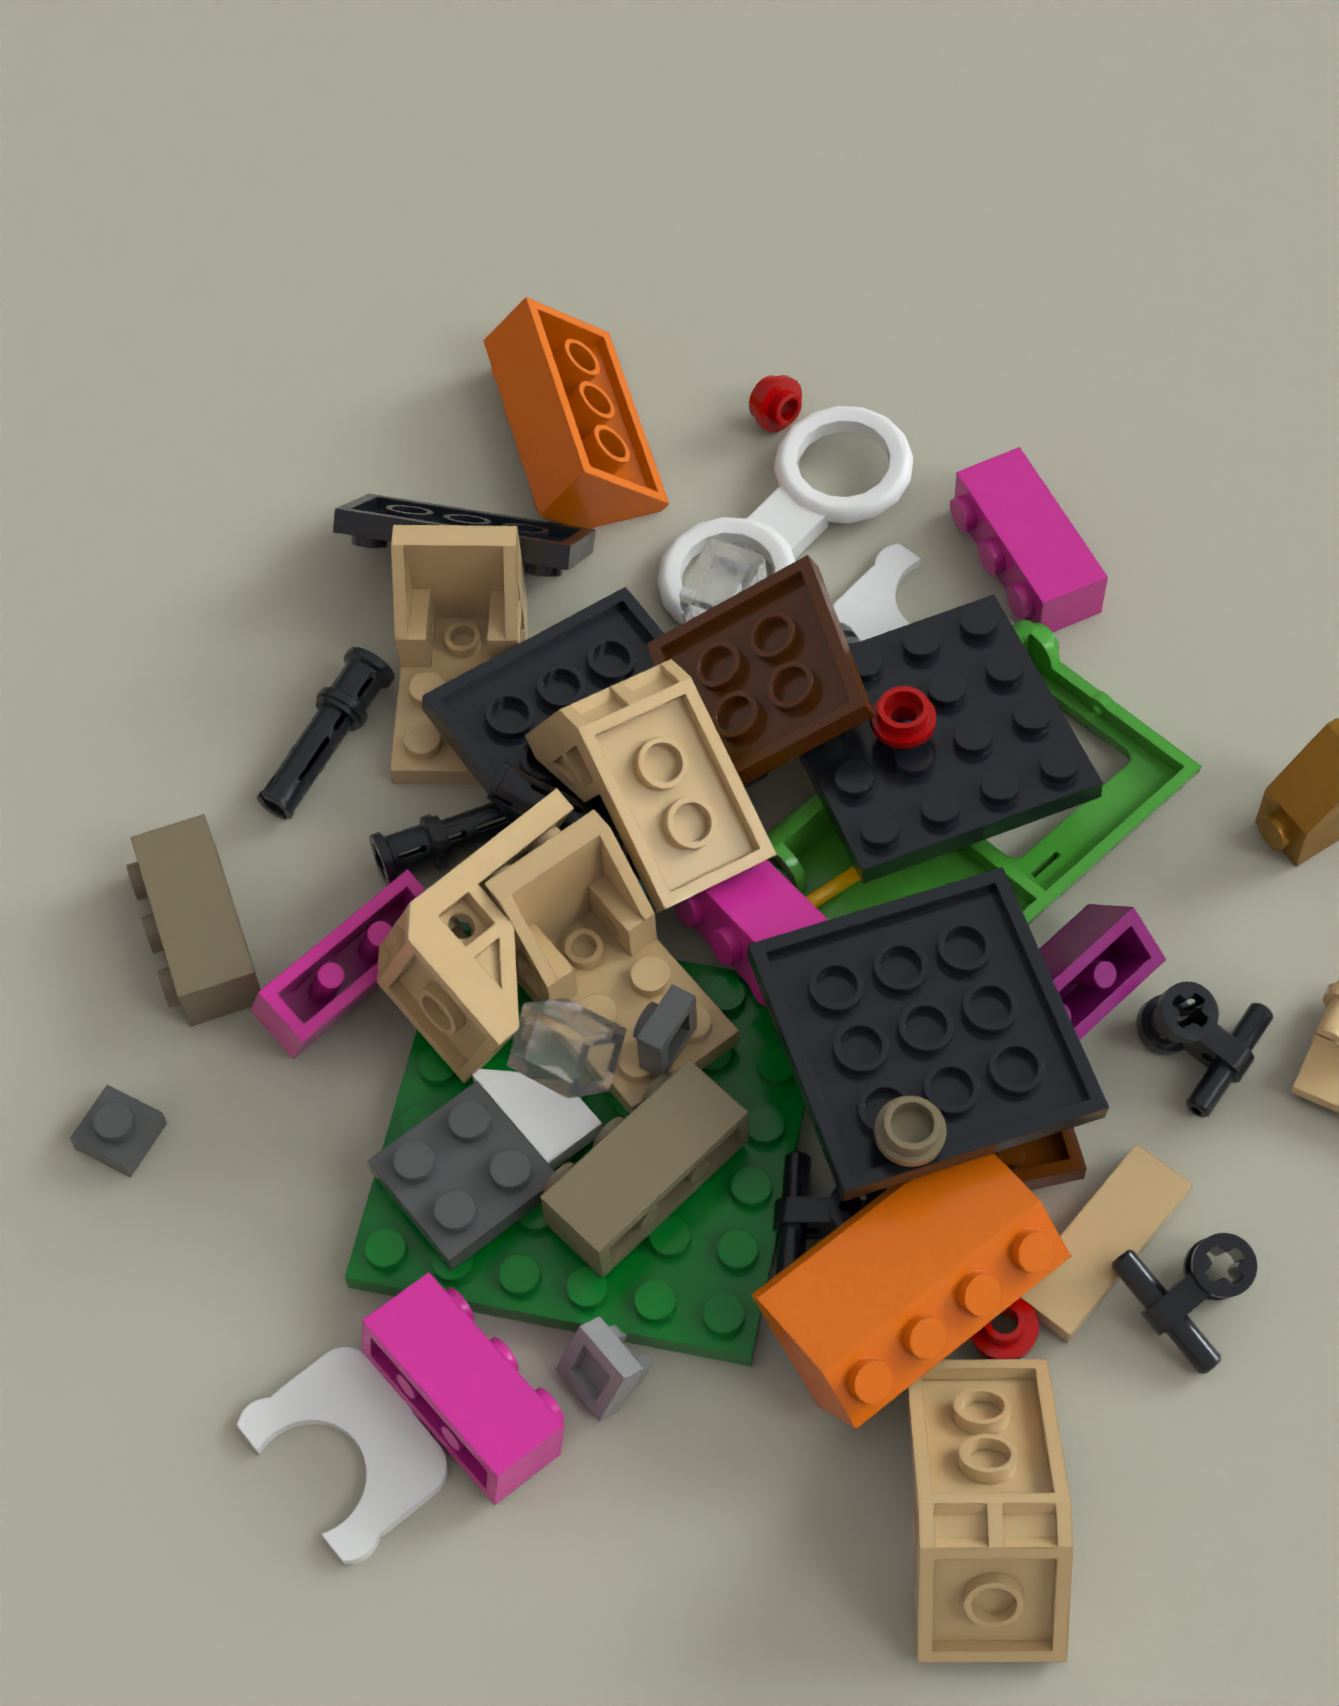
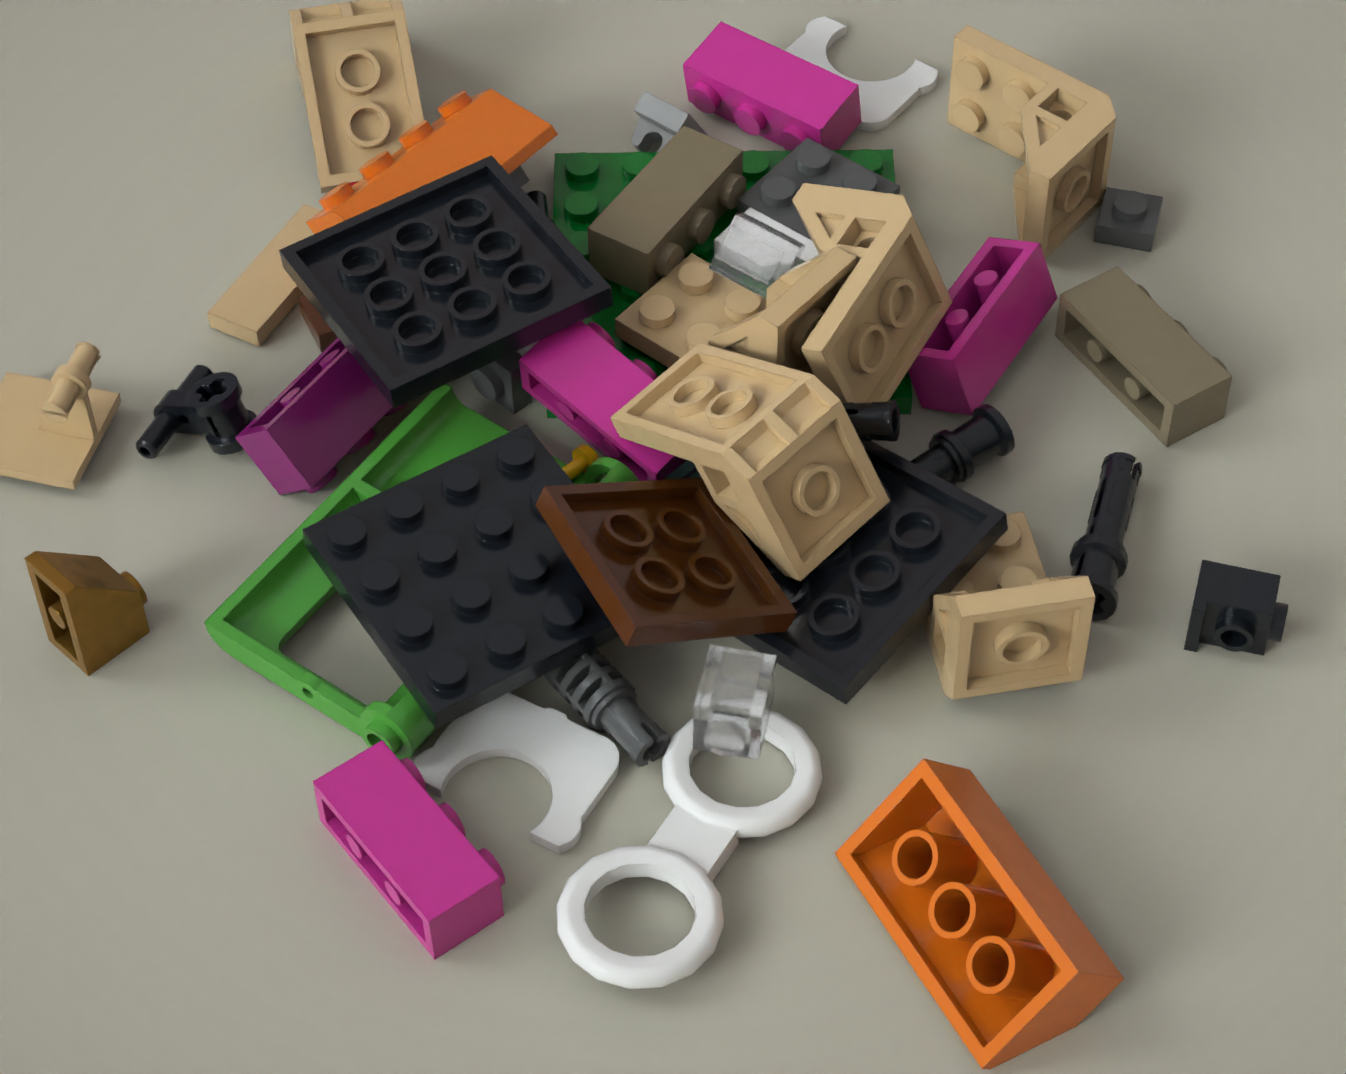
camera: 165 degrees right, 10 degrees down
(190, 1140) = (1042, 119): none -> tan bracket
(248, 630) = (1235, 609): none -> black brick
(543, 544) = (1049, 724): black plate -> none
(665, 1030) = (672, 264): dark grey plate -> none
(775, 402) = (738, 978): red plate -> none
(908, 704) = (508, 516): red plate -> none
(910, 1131) = (442, 180): dark tan plate -> none
(1168, 1309) = (199, 236): black piece -> none

